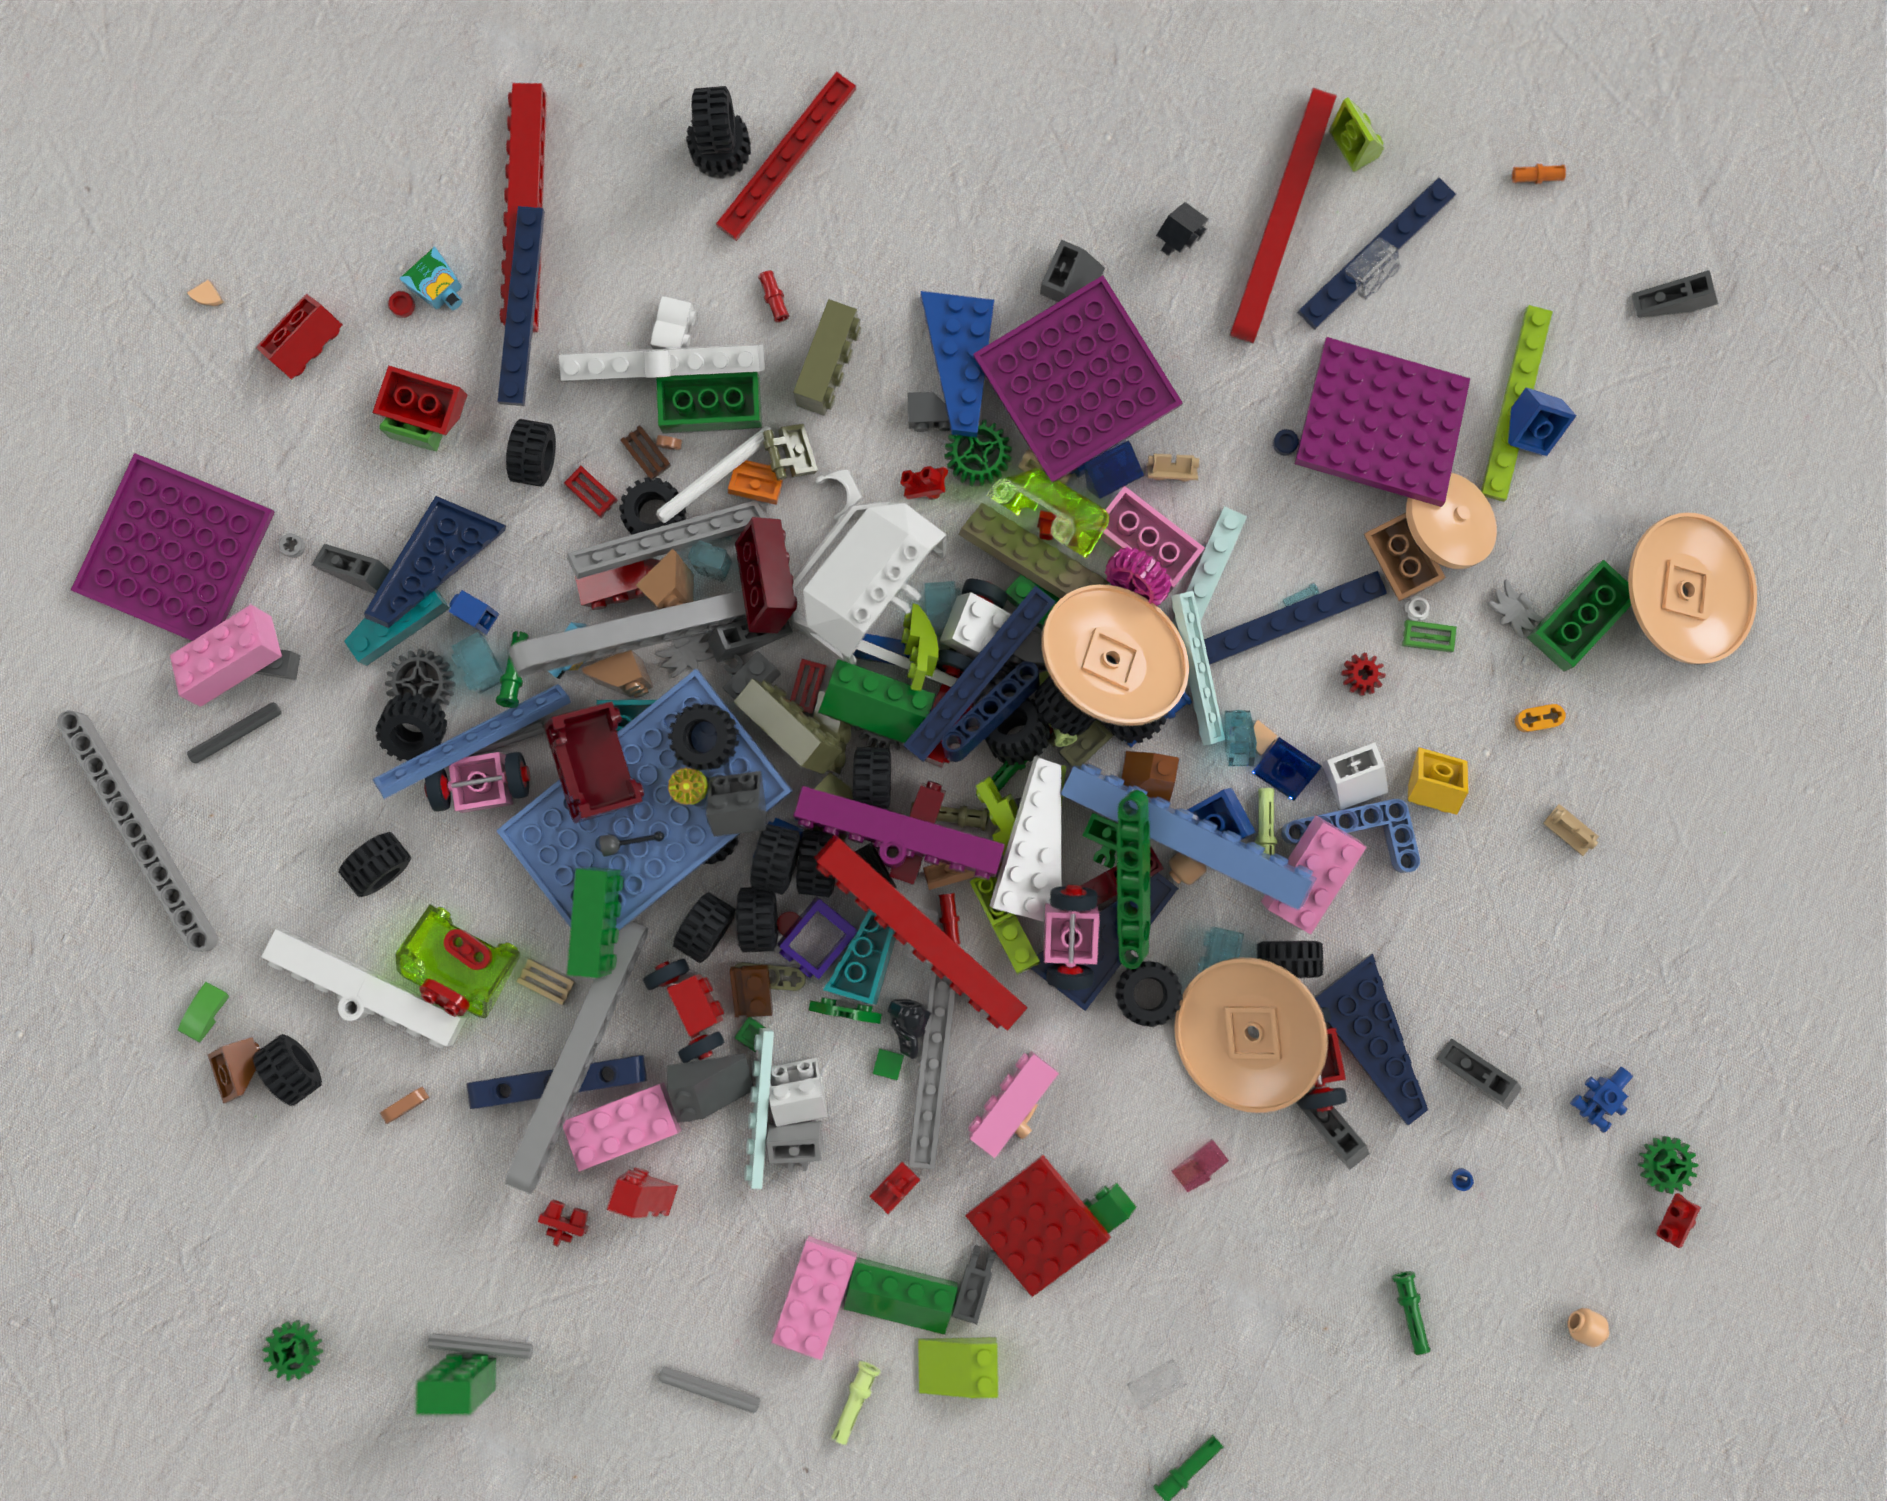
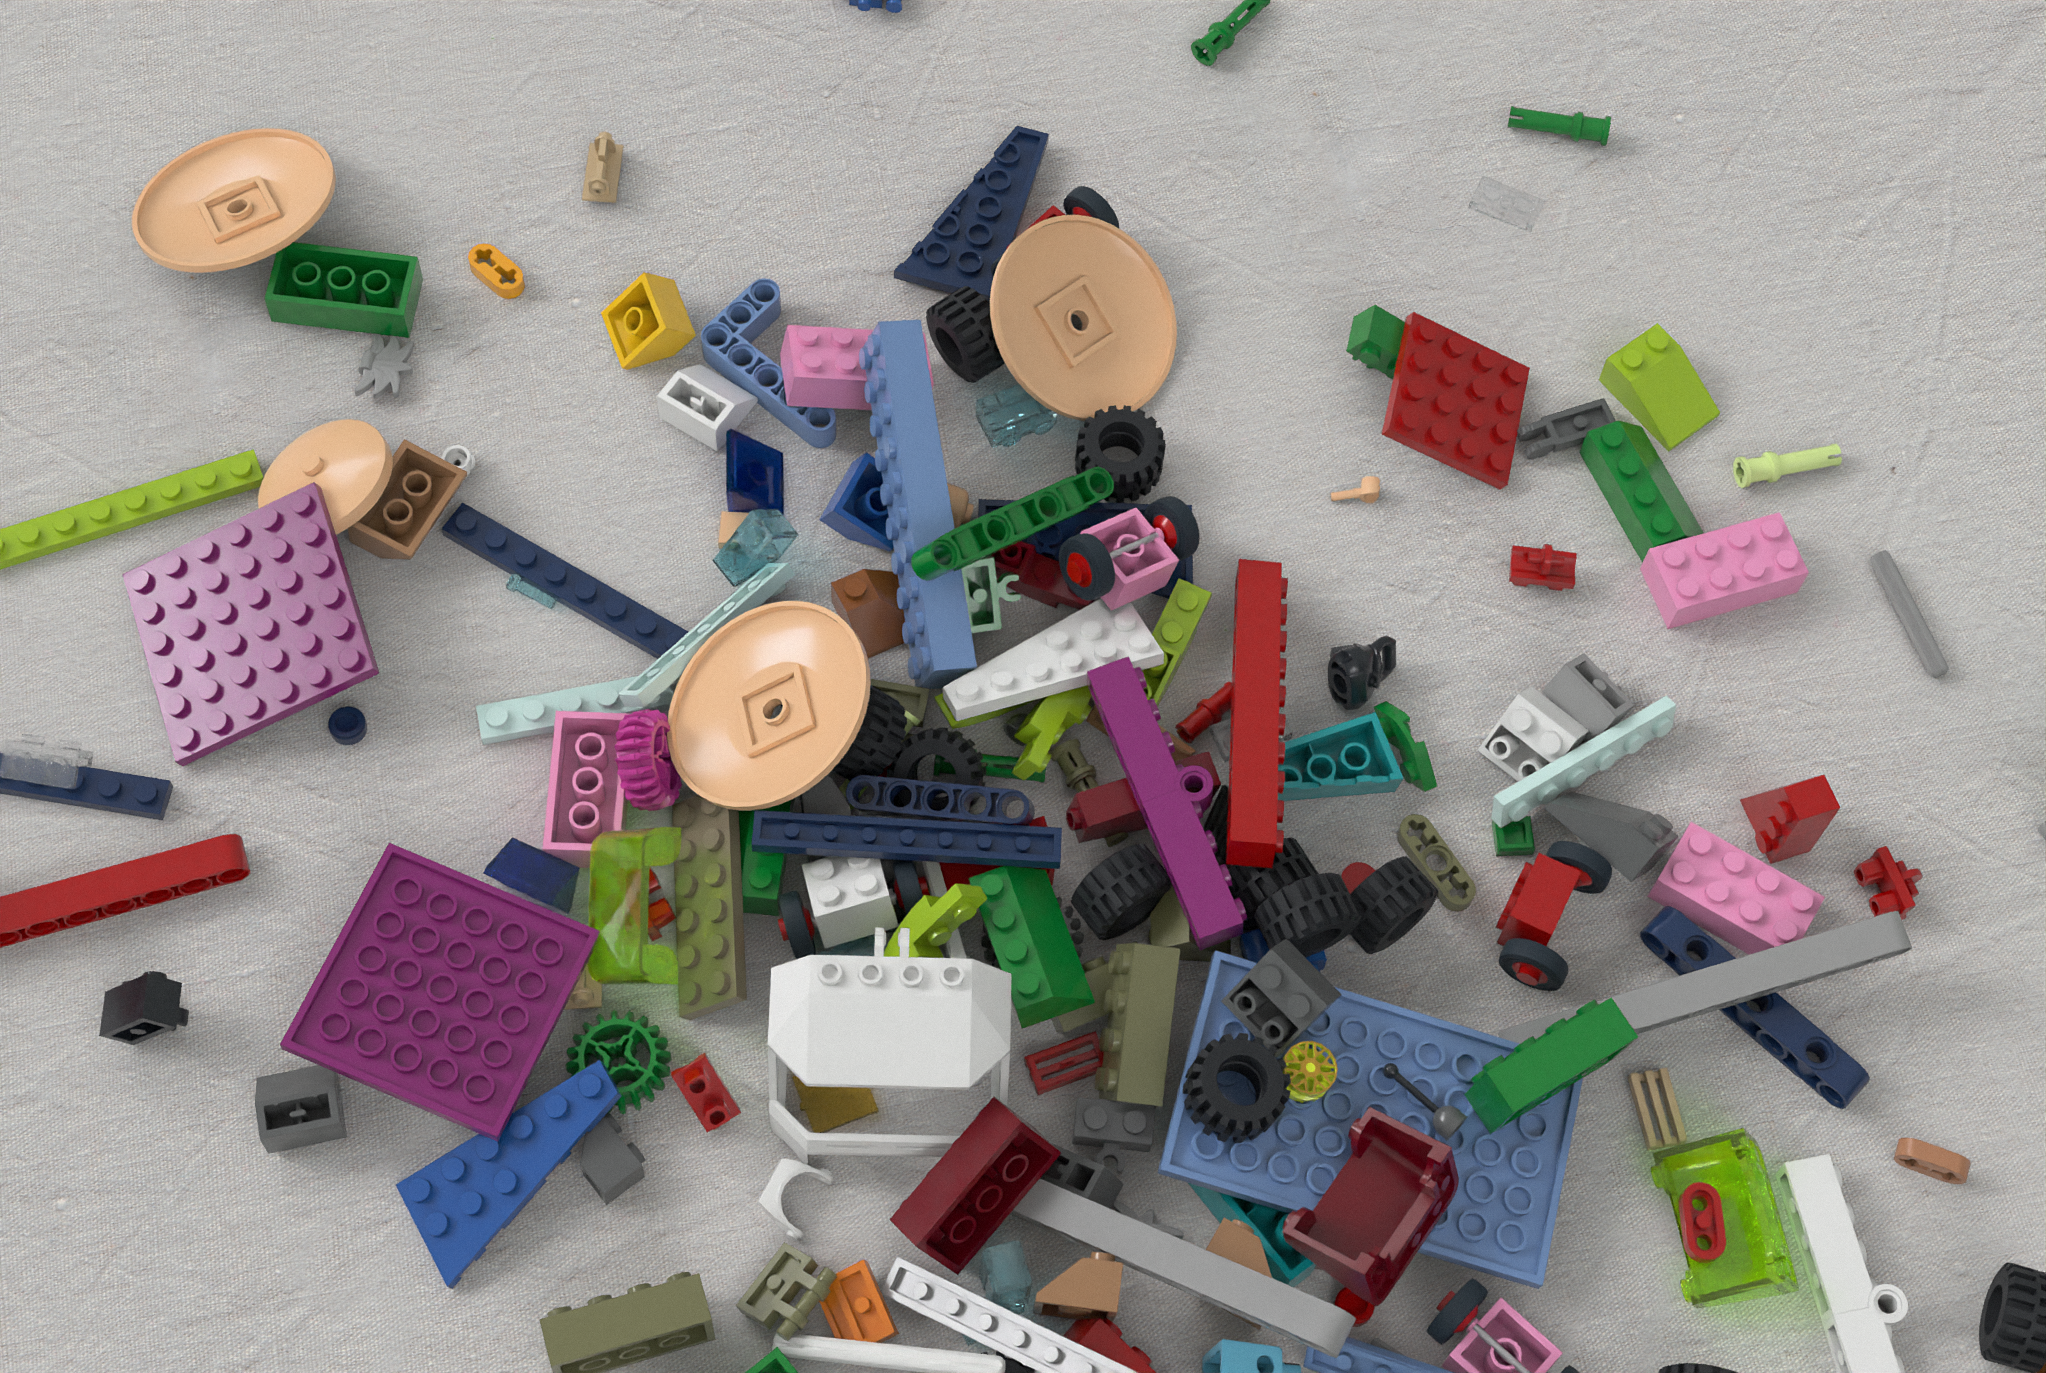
camera: 130 degrees left, 20 degrees down
(449, 1000) = (1784, 1213): red plate -> none
(704, 927) = (1446, 957): black tyre -> none
(751, 991) = (1468, 863): reddish brown plate -> none
(790, 954) = (1345, 805): dark purple window -> none
(888, 1064) = (1420, 669): green tile -> none
(932, 1074) = (1395, 612): light grey plate -> none
(1012, 1104) = (1353, 505): bright pink brick -> none
(1160, 467) = (477, 823): tan hinge -> none
(1199, 1166) = (1259, 300): clear pink slope -> none
(1266, 820) = (830, 462): yellowish green pin -> none
(1338, 1135) = (1117, 178): dark grey slope -> none
(1355, 680) = (580, 467): red gear -> none
(1430, 626) = (493, 455): bright green tile -> none
(1461, 1184) = (1065, 59): blue hinge -> none
(1480, 1073) = (939, 103): dark grey slope -> none
(1538, 421) = (131, 464): blue slope -> none

